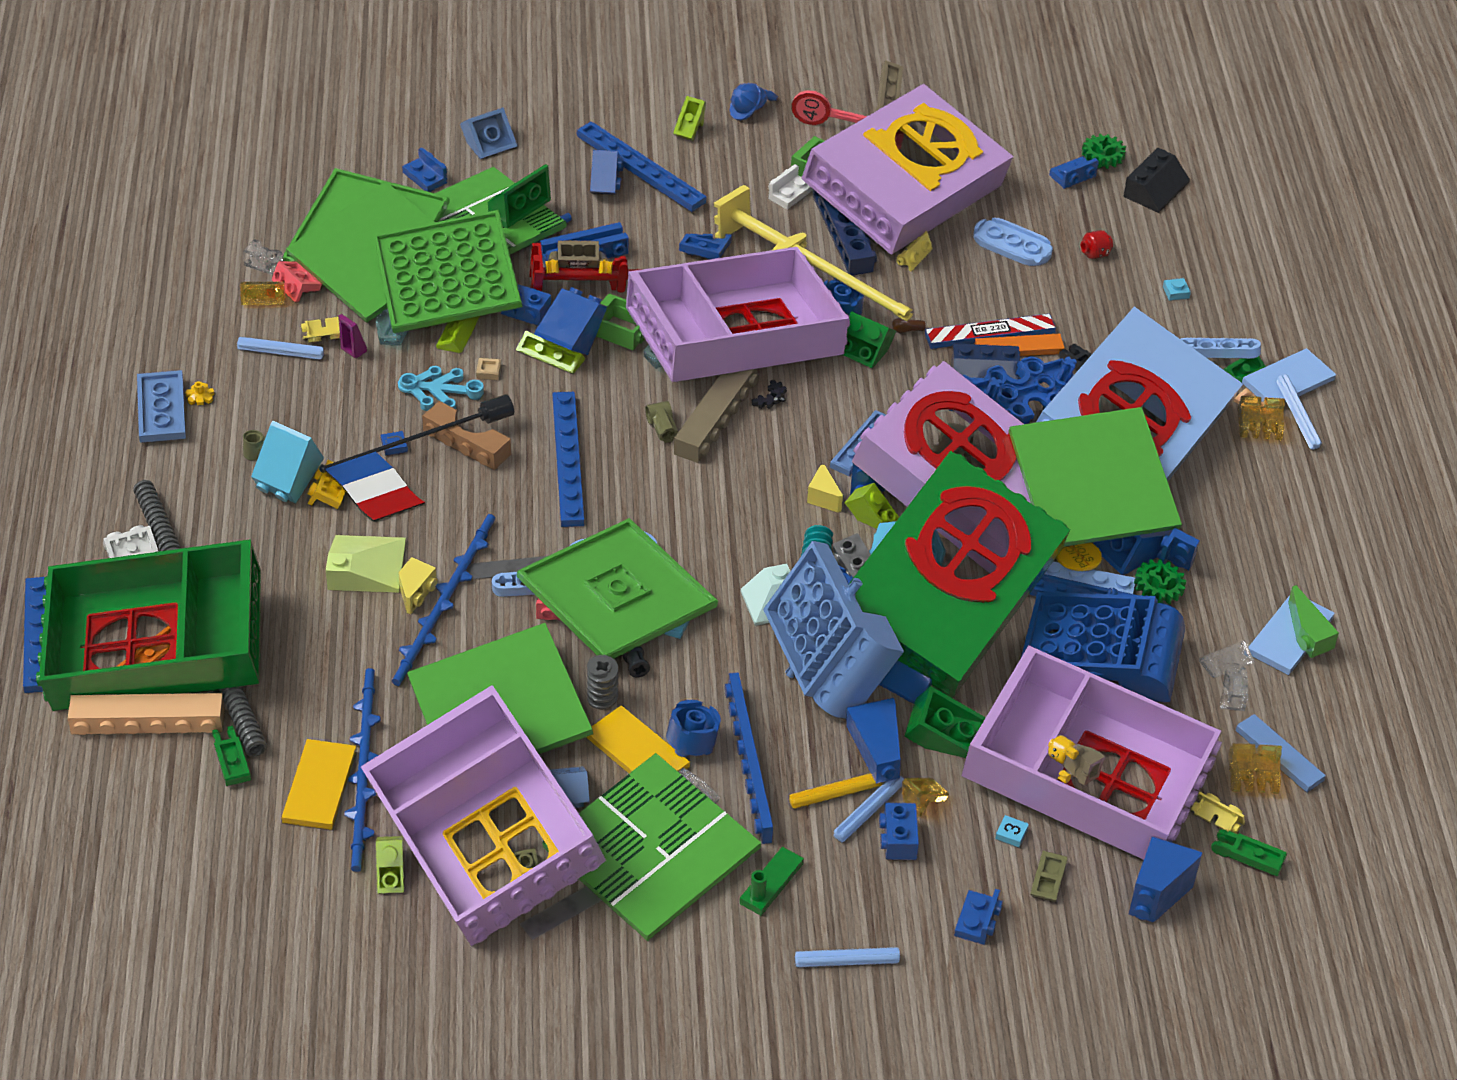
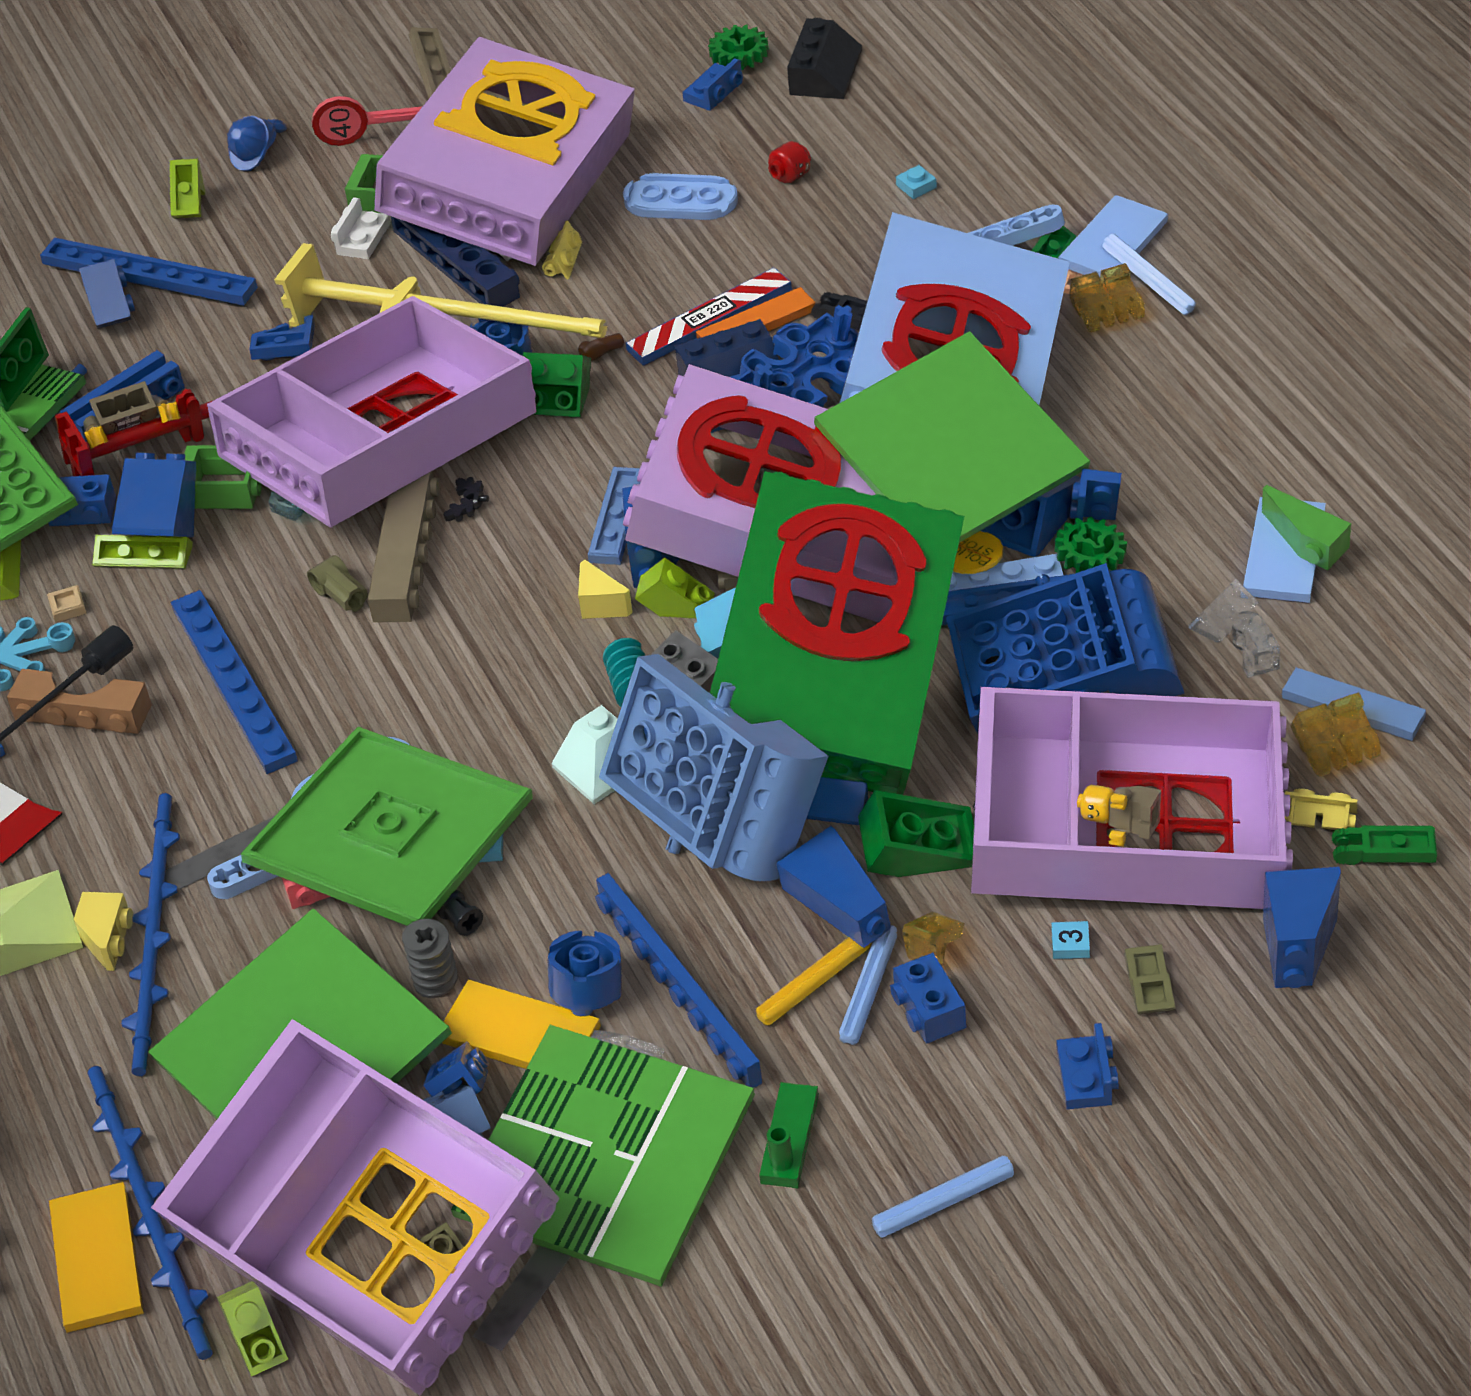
camera: 15 degrees left, 0 degrees up
(592, 756) = (462, 1062): none -> blue bracket

